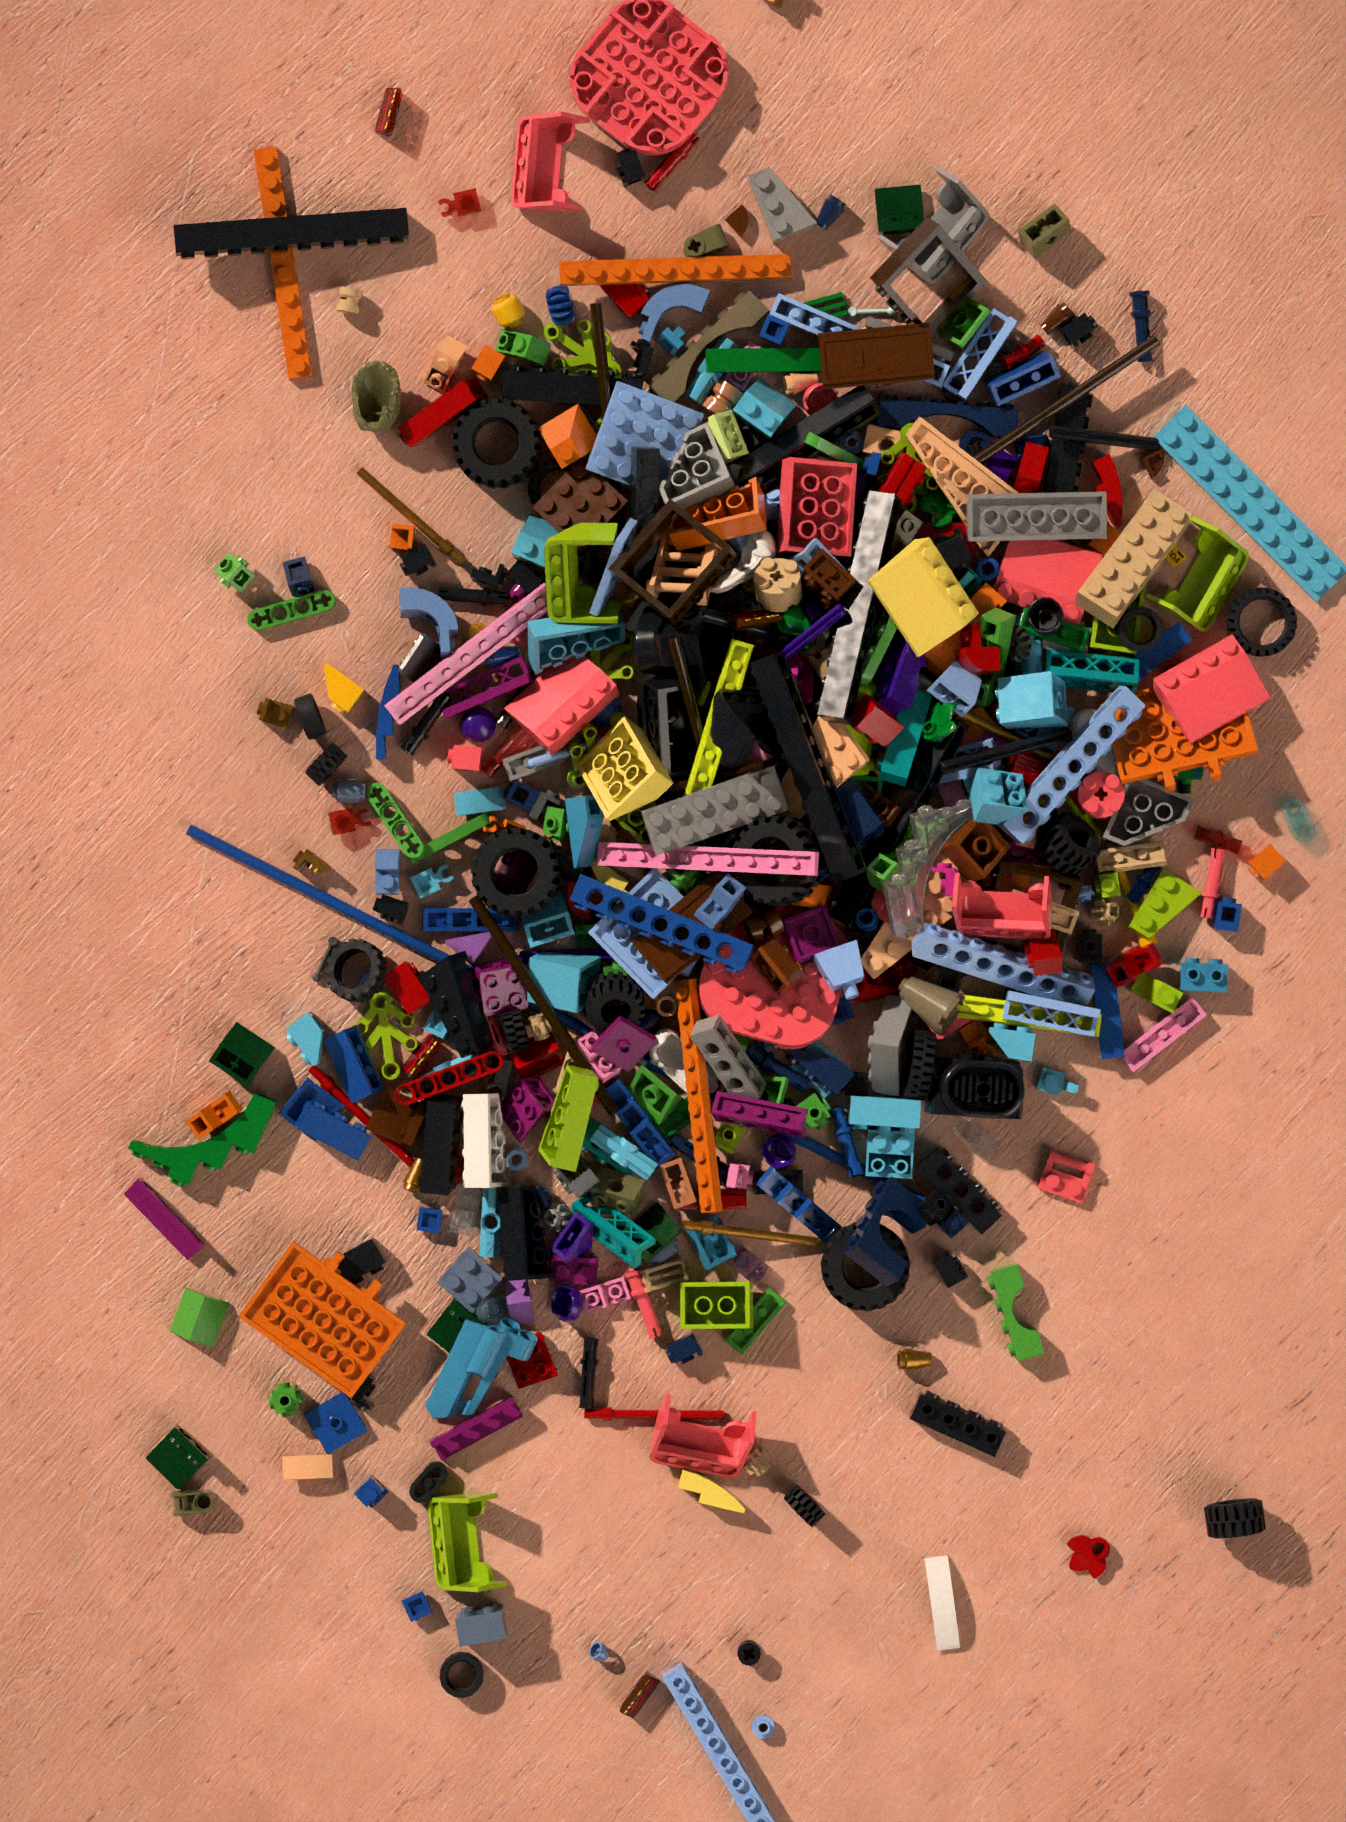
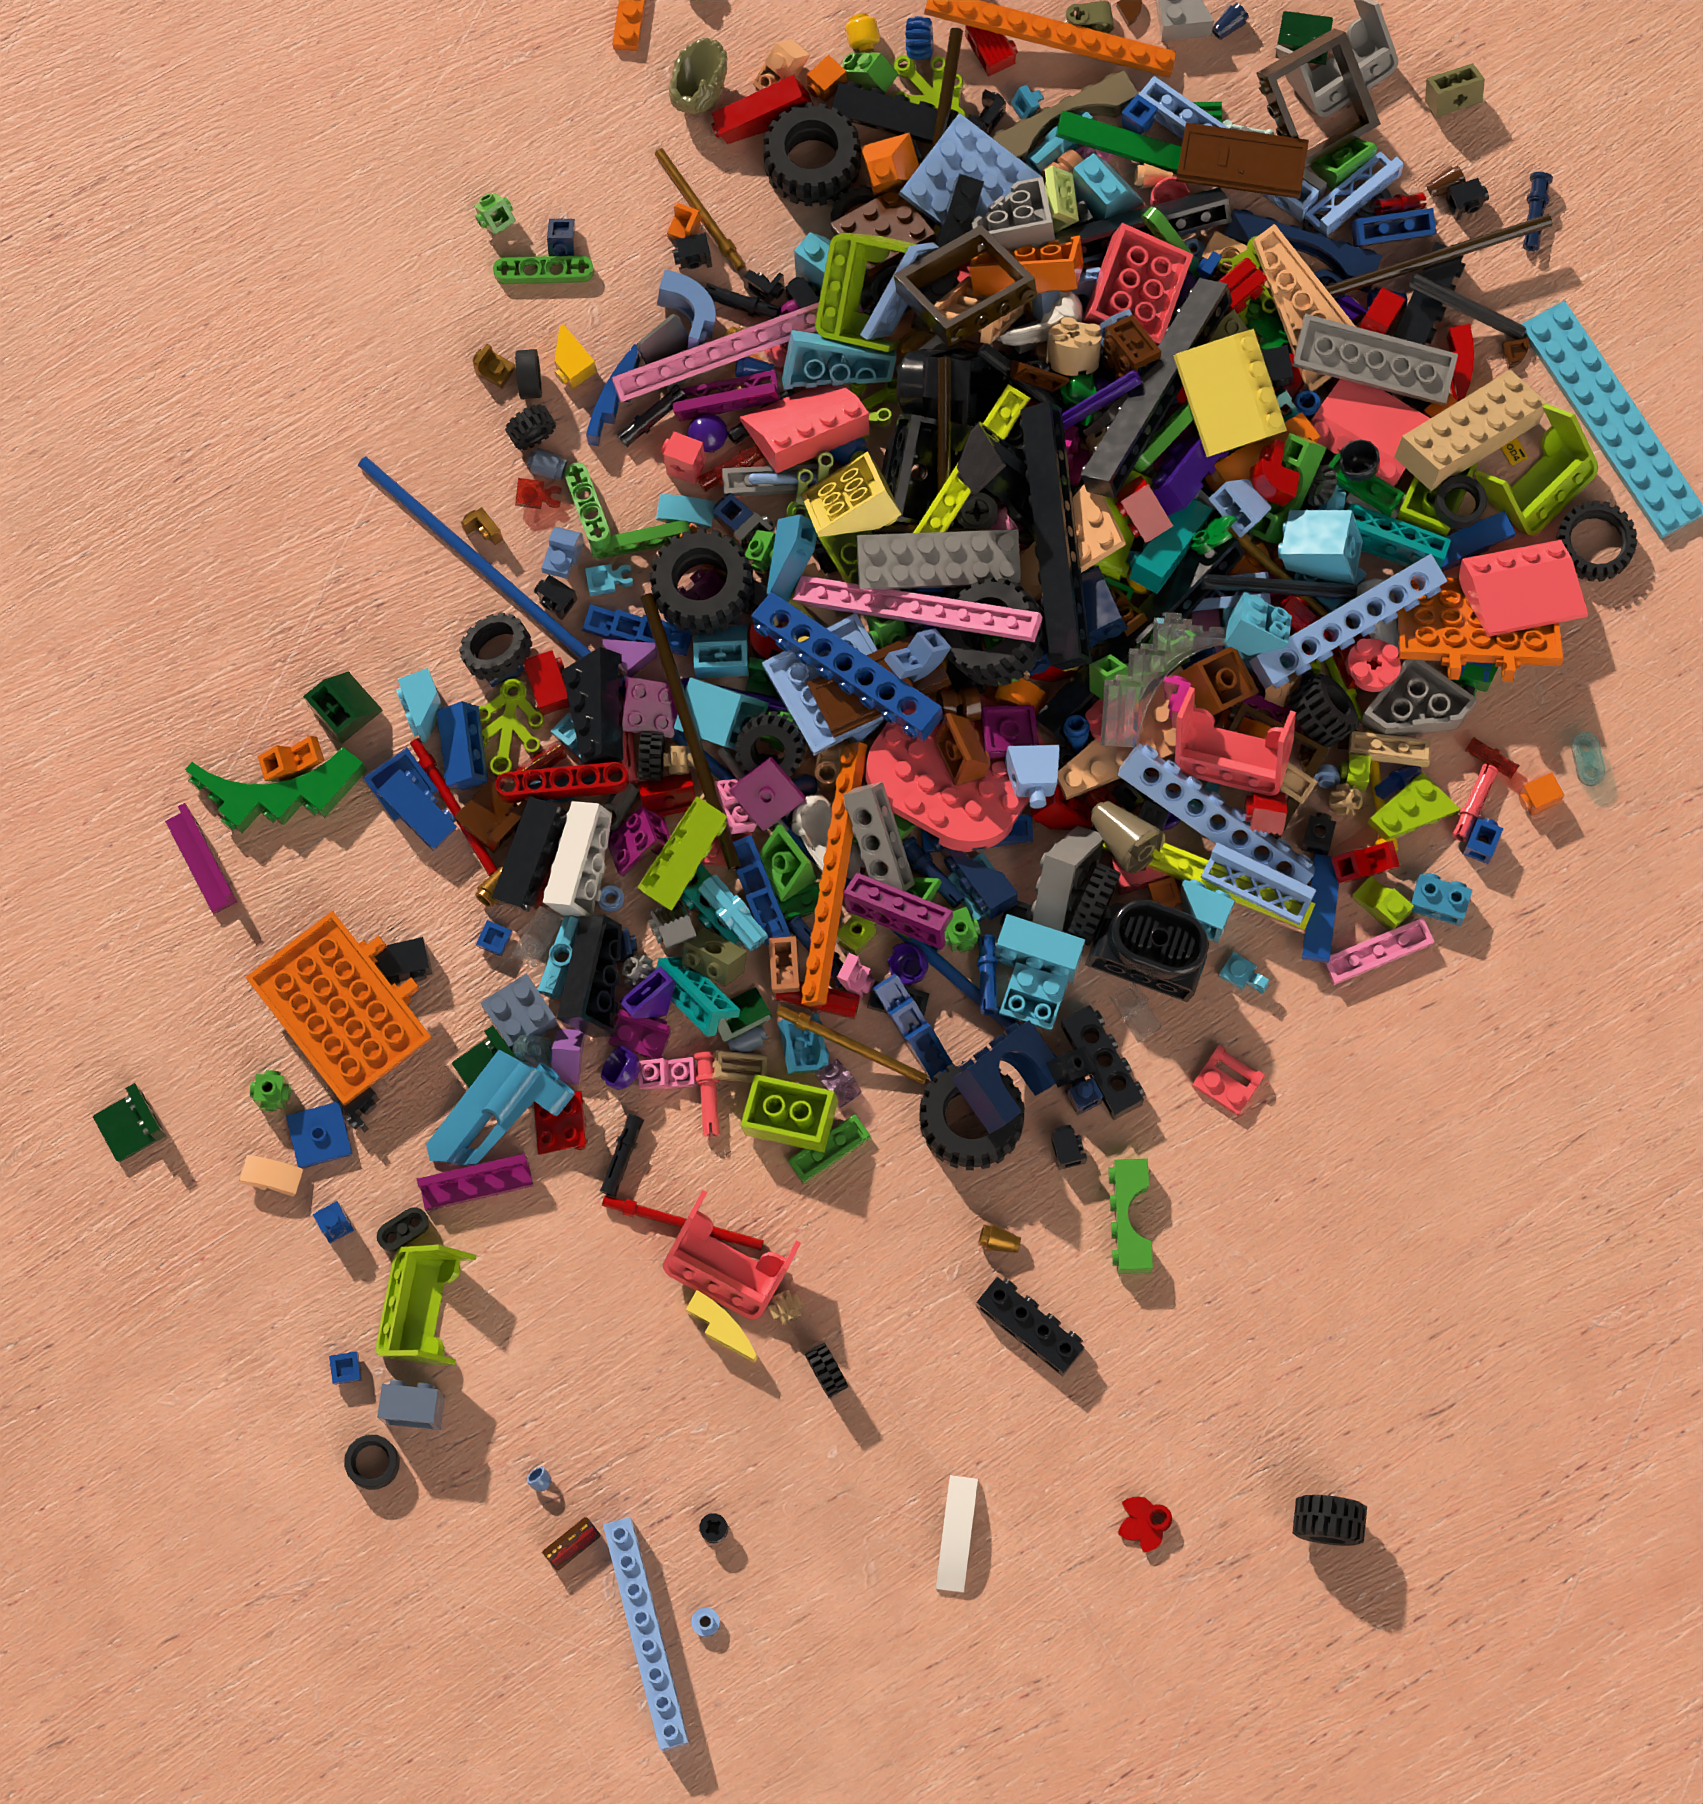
camera: 15 degrees right, 15 degrees down
(188, 1502) = (125, 1178): olive piece -> none
(199, 1317) = (205, 978): bright green slope -> none
(332, 942) = (451, 648): dark grey hinge -> none
(672, 297) = (1038, 62): medium blue arch -> none
(683, 1349) = (738, 1156): dark blue brick -> none

